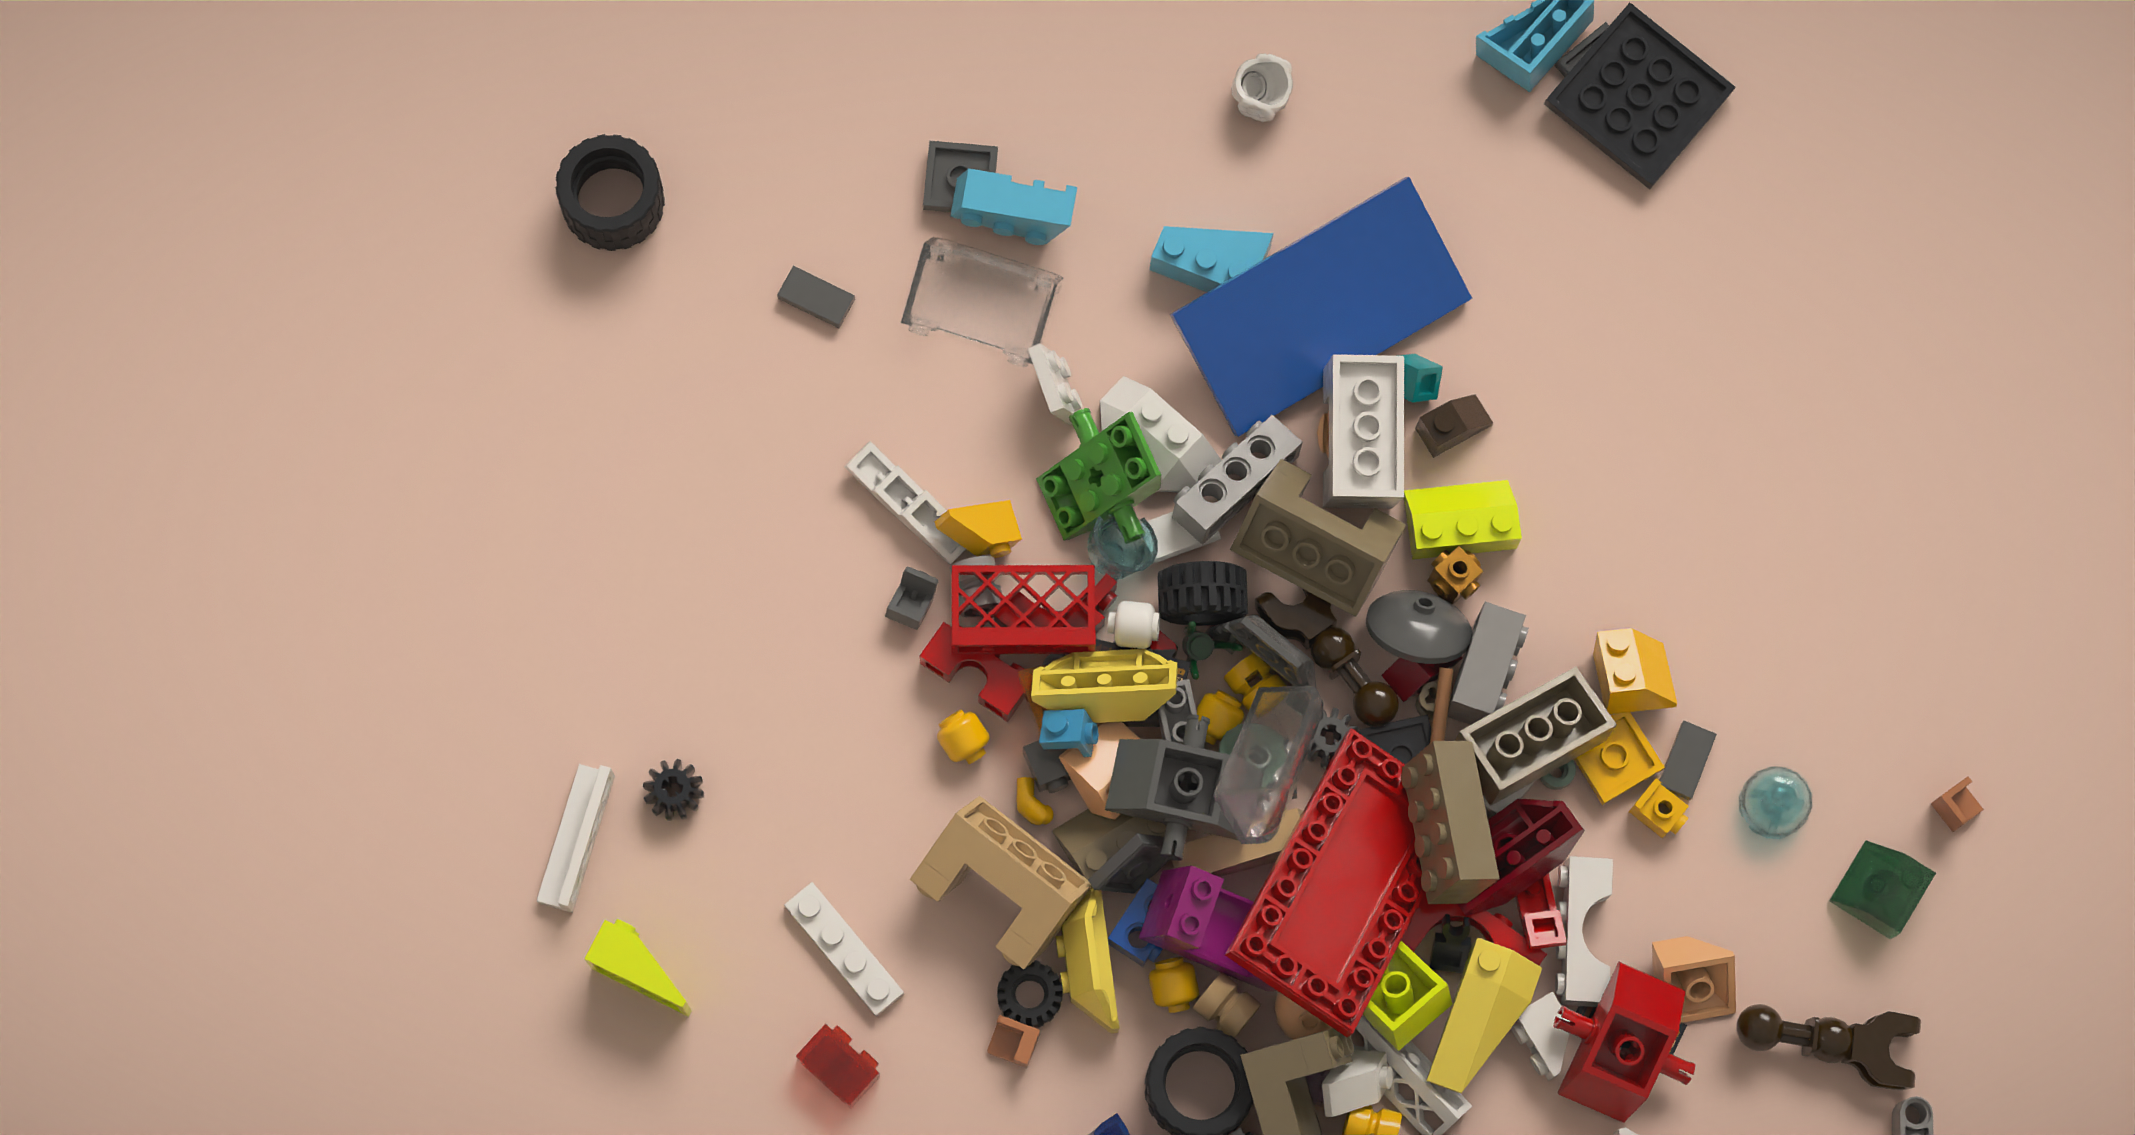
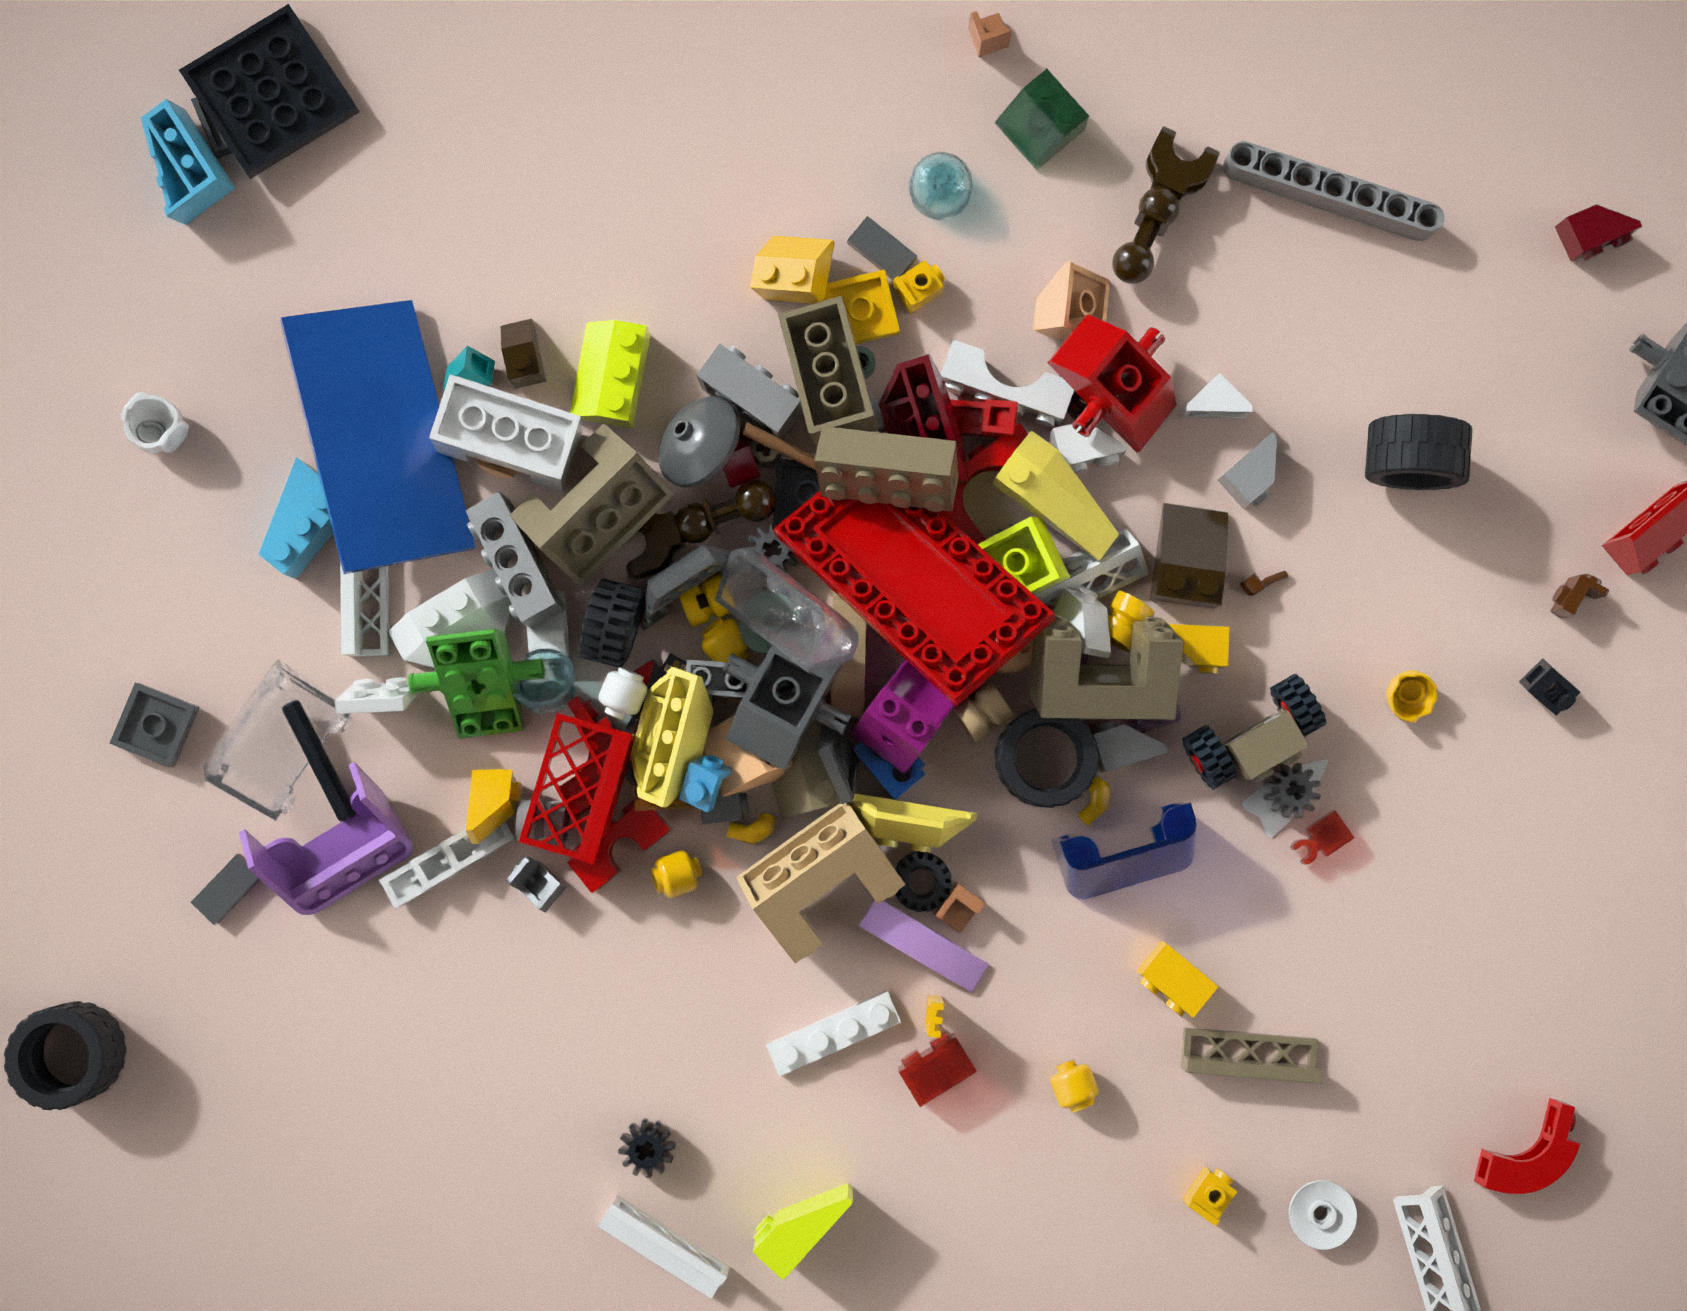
camera: 65 degrees left, 10 degrees up
(878, 396) = (338, 859): none -> medium lavender windscreen
(893, 1041) = (934, 1016): none -> yellow tile
(964, 1015) = (924, 944): none -> lavender slope
(972, 347) = (318, 760): none -> black axle
(1012, 207) = (197, 686): medium azure wedge -> none
(1129, 337) = (352, 614): none -> white fence
(1173, 984) = (950, 753): yellow head -> none
(1200, 646) = (657, 639): dark green plant -> none
(1451, 946) = (988, 502): black plate -> none
(1455, 575) = (663, 404): pearl gold brick -> none

